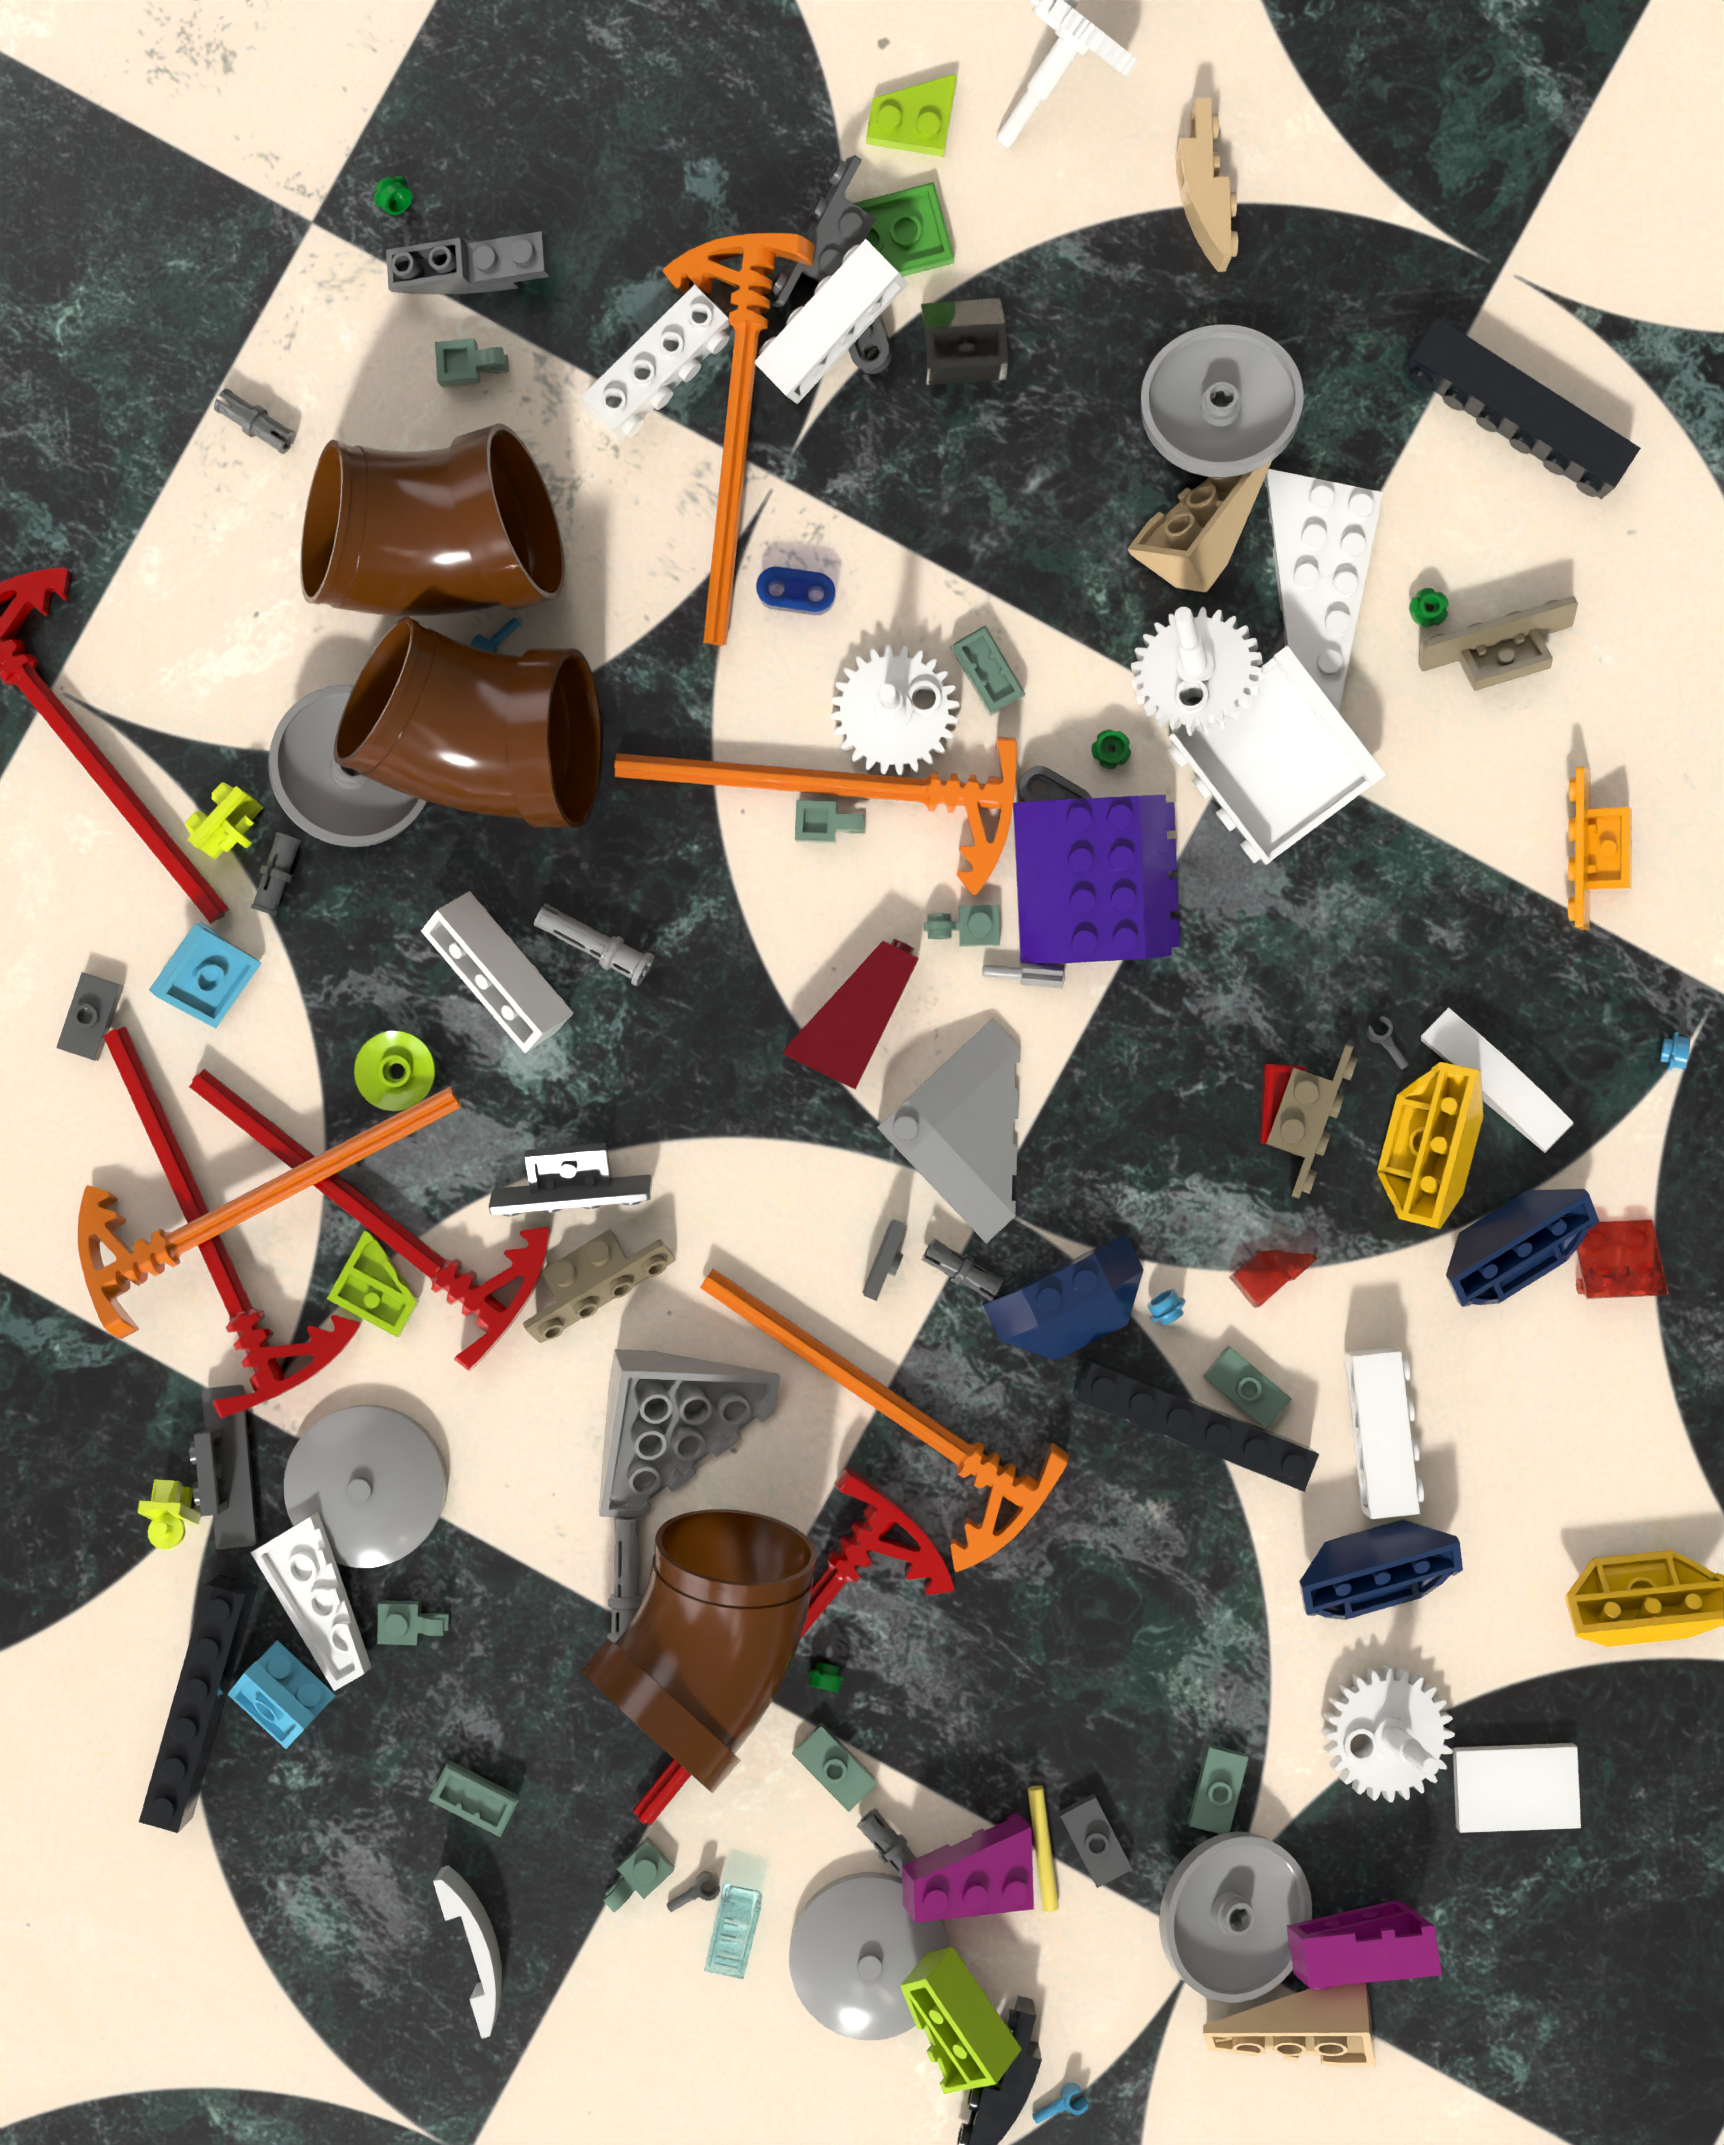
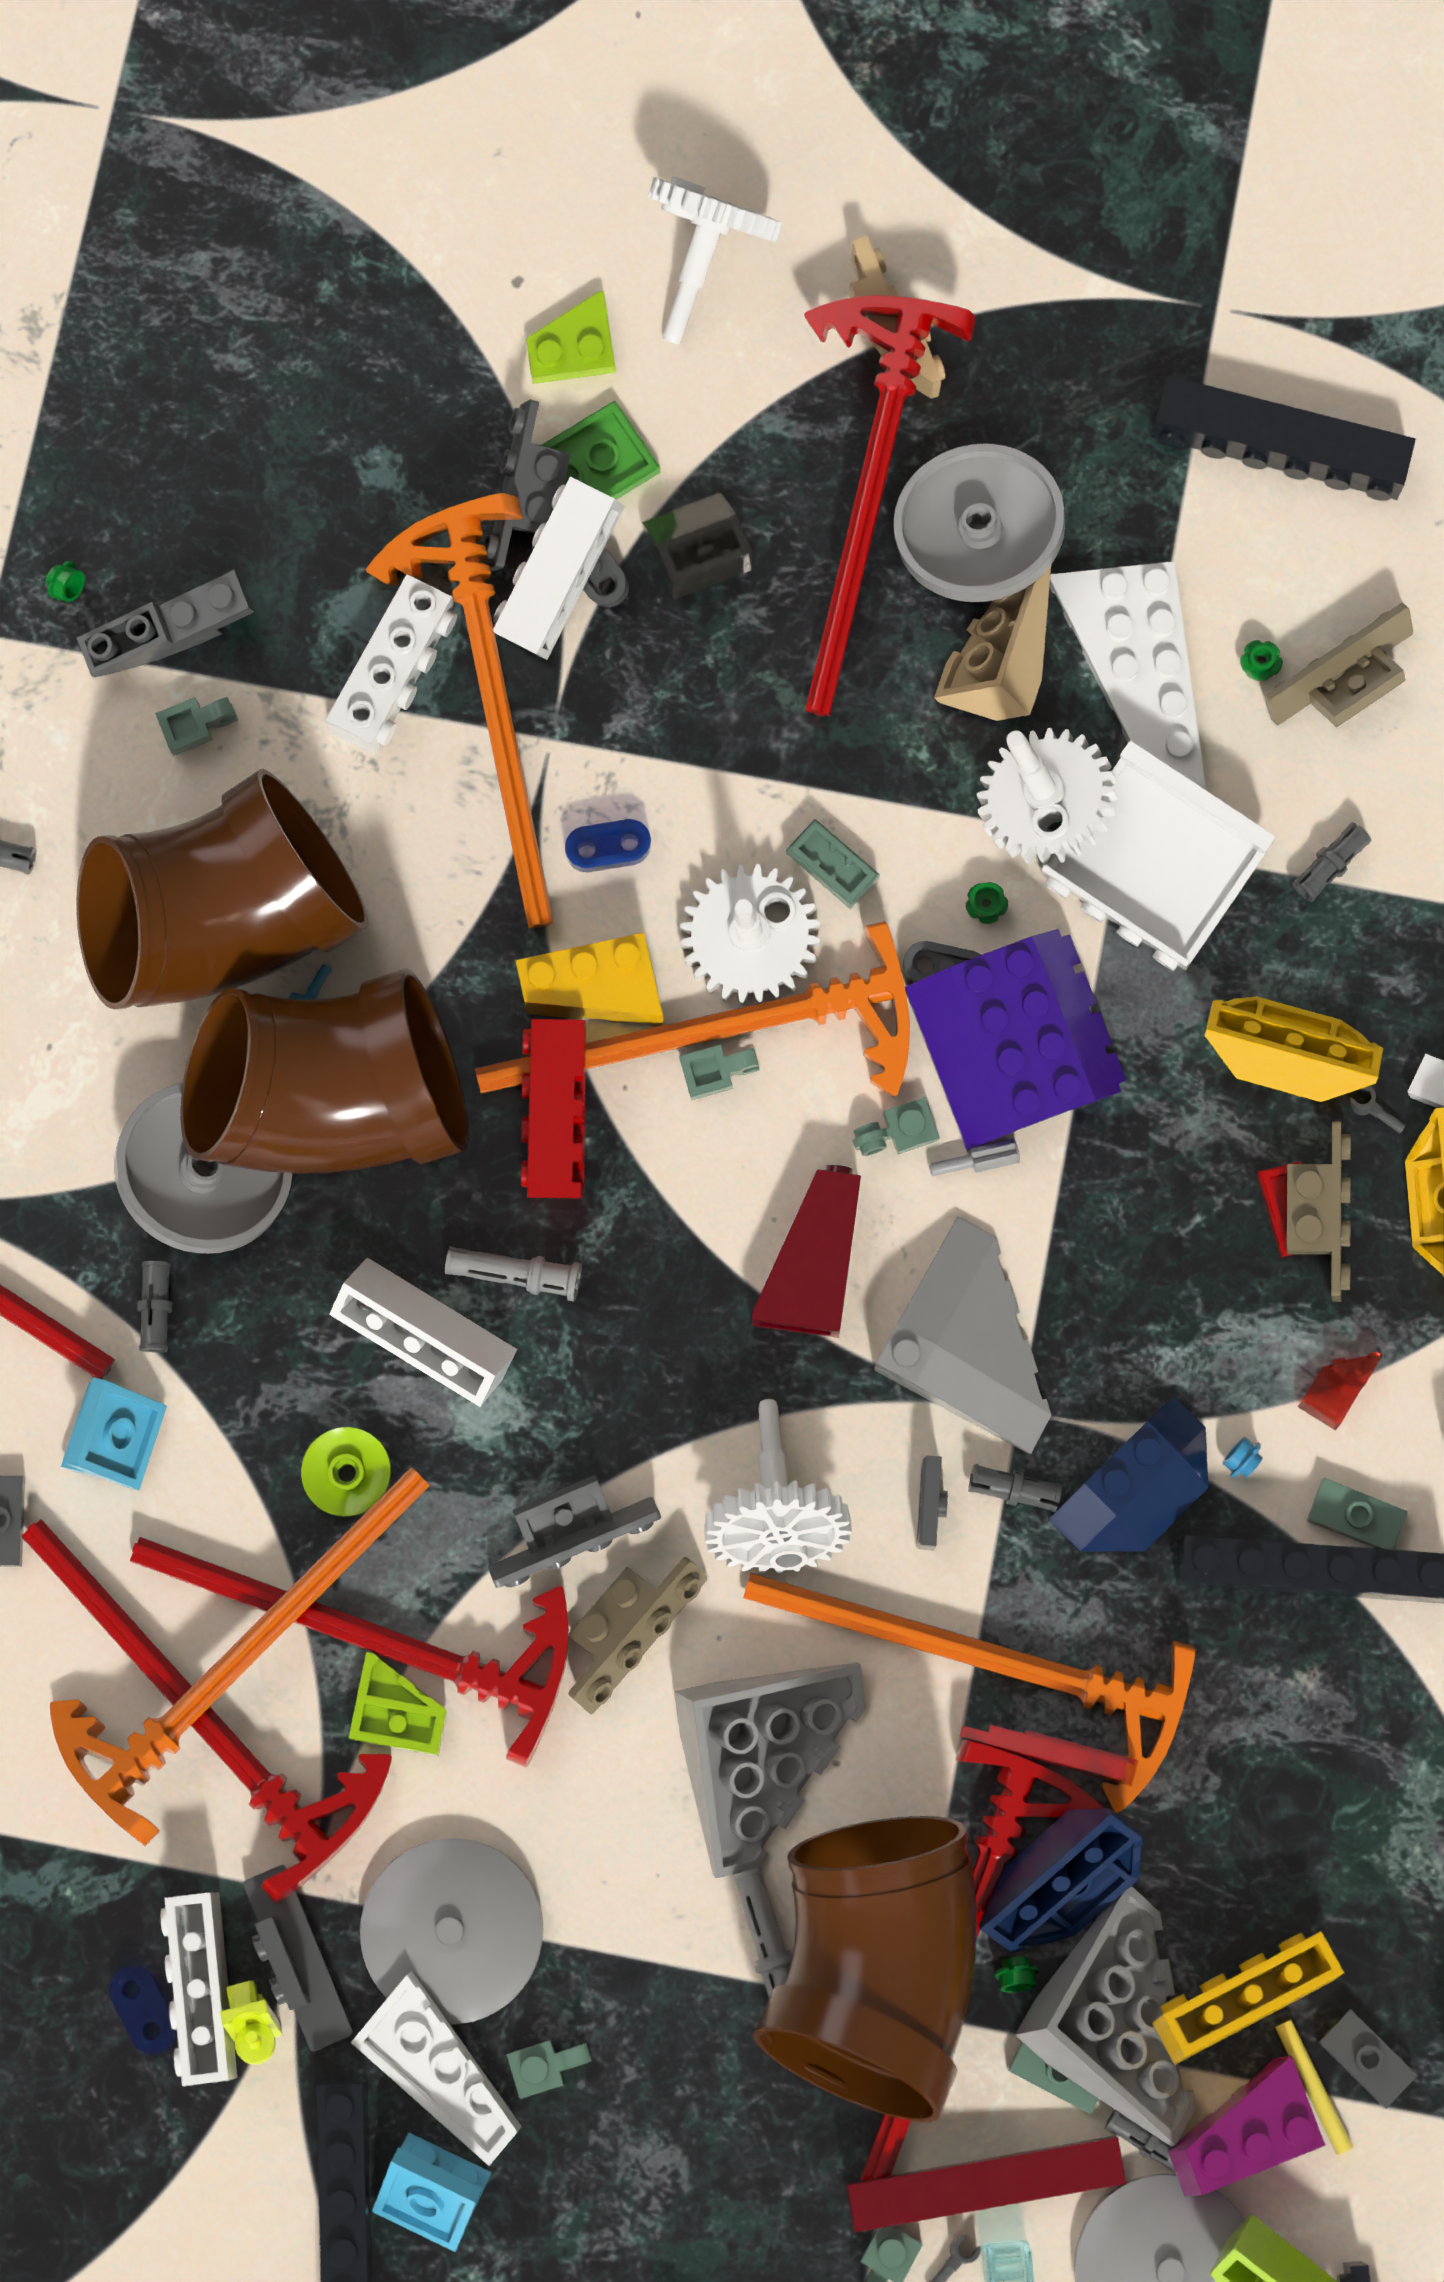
camera: 20 degrees left, 10 degrees down
(92, 1467) = (145, 2008): none -> clear blue plate
(137, 1459) = (199, 1988): none -> white brick
(226, 823) = (87, 1271): neon yellow hips -> none
(474, 1798) = (679, 2236): sand green plate -> none
(671, 815) = (555, 1108): none -> red wedge
(741, 1841) = (985, 2183): none -> dark red tile
(743, 709) = (593, 981): none -> yellow wedge
(746, 1239) = (777, 1521): none -> white gear
(887, 1616) = (1063, 1879): none -> dark blue wedge
(890, 1743) = (1100, 2017): none -> light grey slope
(922, 1508) = (1057, 1752): none -> red piece
(1011, 1765) = (1248, 1997): none -> yellow brick
(1188, 247) = (913, 324): none -> red piece
(1334, 966) = (1291, 1048): none -> yellow wedge
(1427, 810) = (1331, 862): none -> dark grey pin

